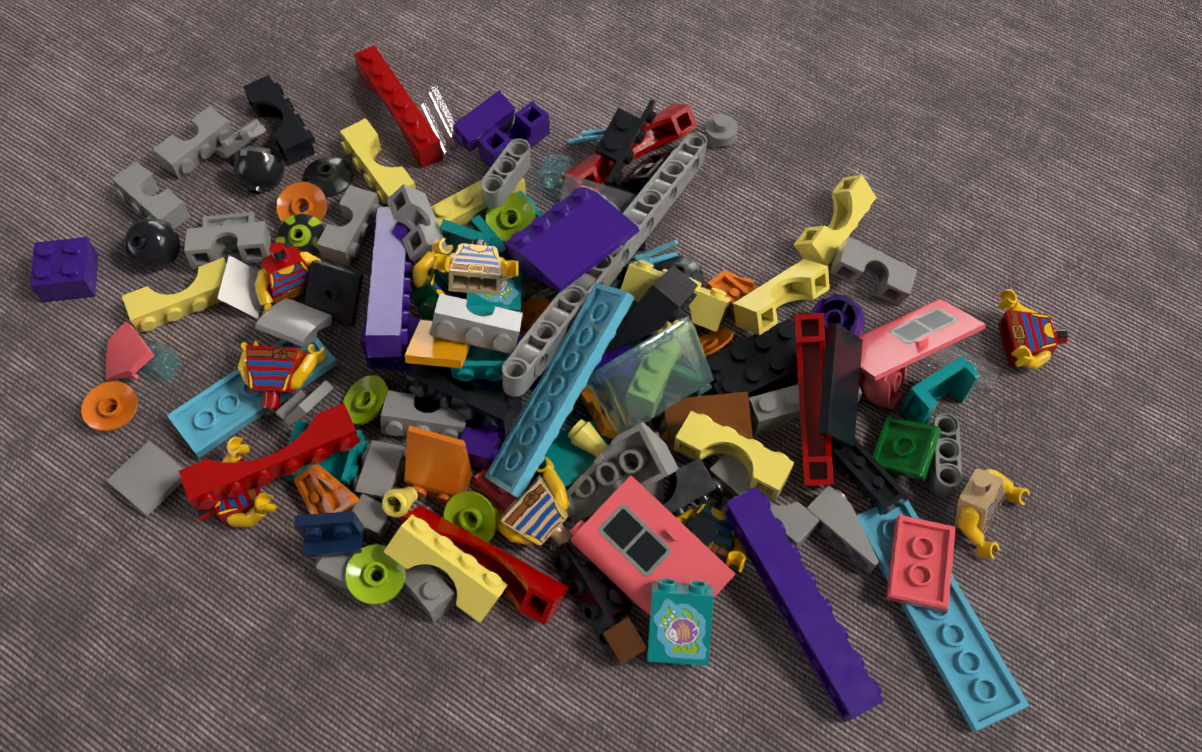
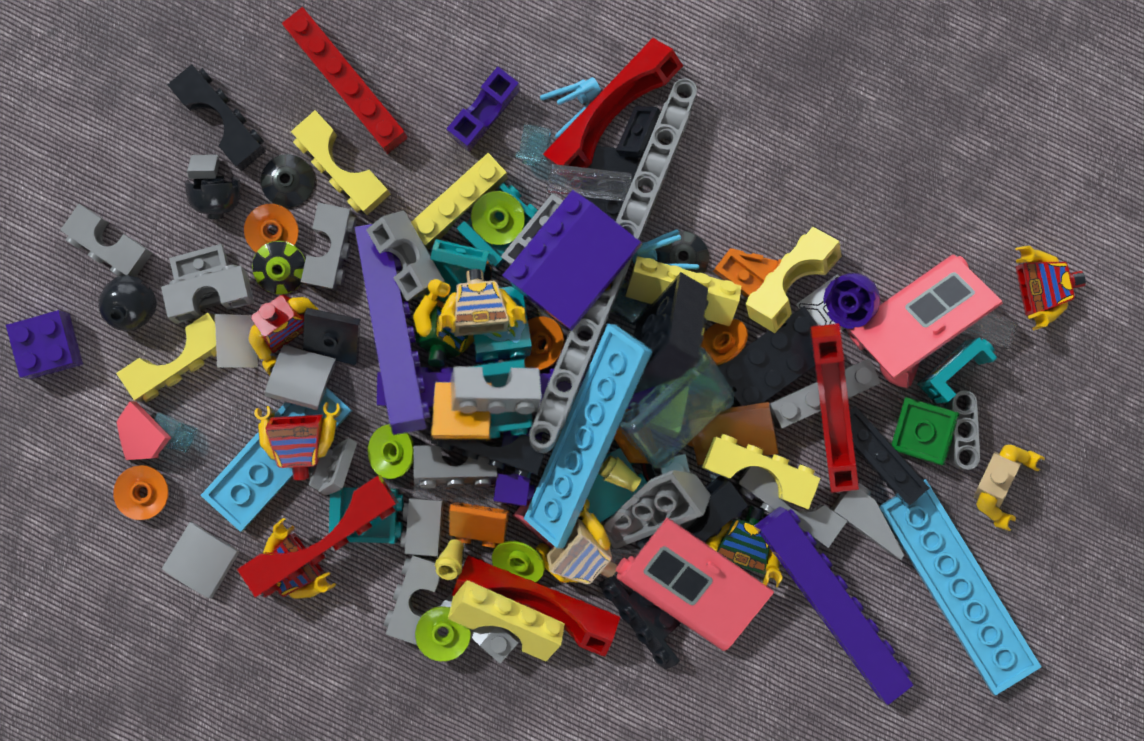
camera: 10 degrees left, 25 degrees up
(183, 156) = (125, 183): light grey arch -> none
(240, 139) = (184, 153): light grey slope -> none
(323, 492) = (376, 560): orange wing -> none
(330, 533) = (395, 609): dark blue bracket -> none
(439, 118) = (396, 92): clear tile -> none
(491, 113) = (448, 103): dark purple slope -> none
(506, 173) = (487, 163): light grey beam -> none
(621, 138) = (603, 107): black bracket -> none
(624, 641) = (679, 662): reddish brown panel -> none
(680, 622) = (728, 641): panel -> none
(704, 530) = (739, 552): black tile -> none
(720, 130) = (709, 64): light grey piece -> none
(840, 385) = (860, 391): black tile -> none
(850, 201) = (858, 145): light yellow arch -> none
(892, 276) = (907, 235): light grey arch -> none
(921, 563) = (943, 548): coral tile -> none

